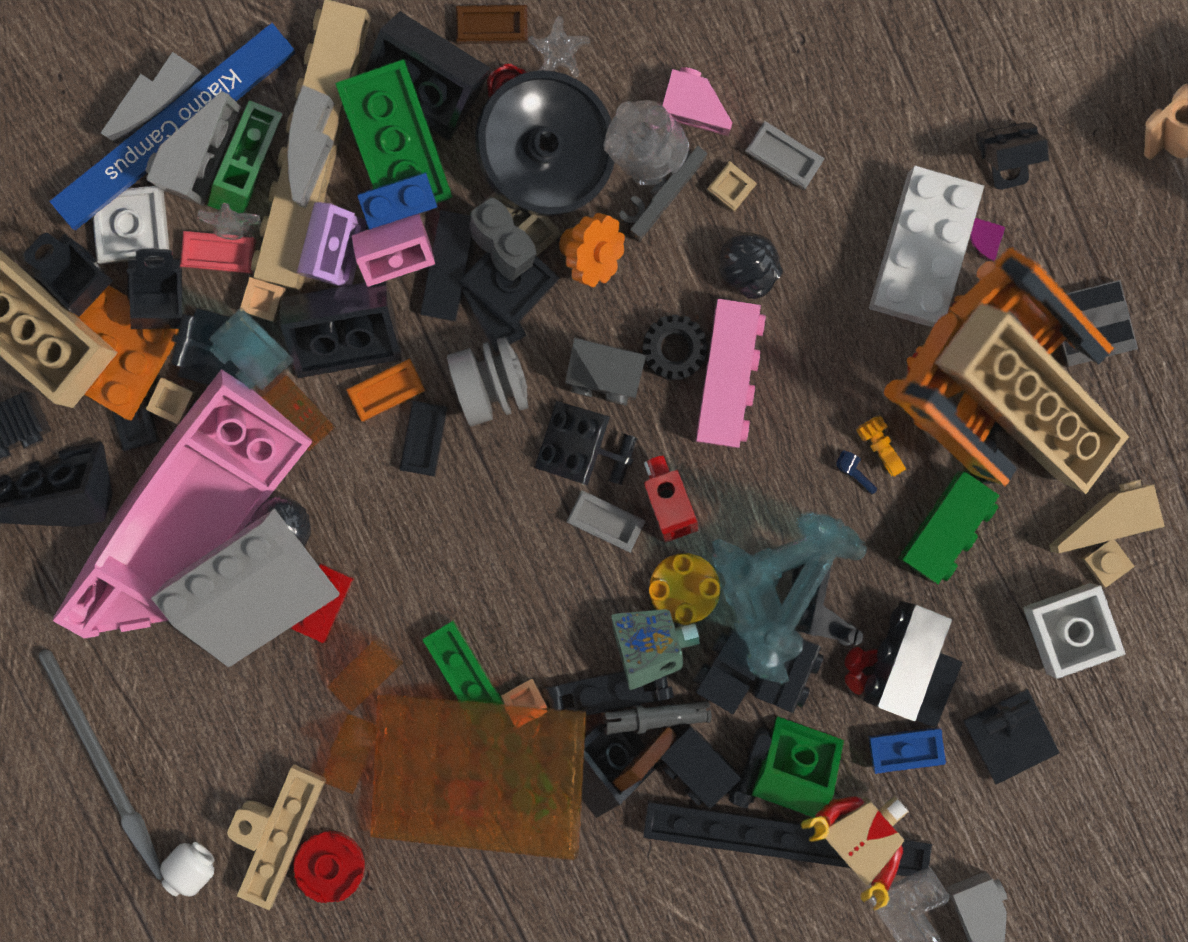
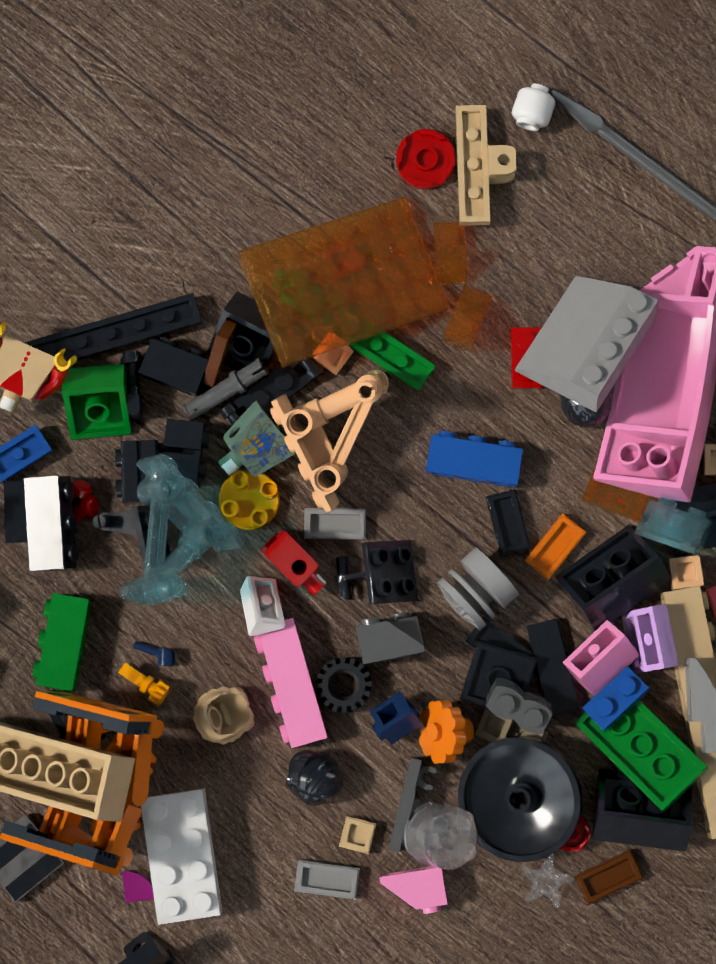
camera: 160 degrees right, 5 degrees down
(427, 520) = (474, 459): none -> blue brick
(591, 618) = (312, 442): none -> light nougat plate
(637, 286) = (395, 718): none -> dark blue brick
(722, 469) = (261, 605): none -> white slope
(815, 373) = (223, 715): none -> tan hair

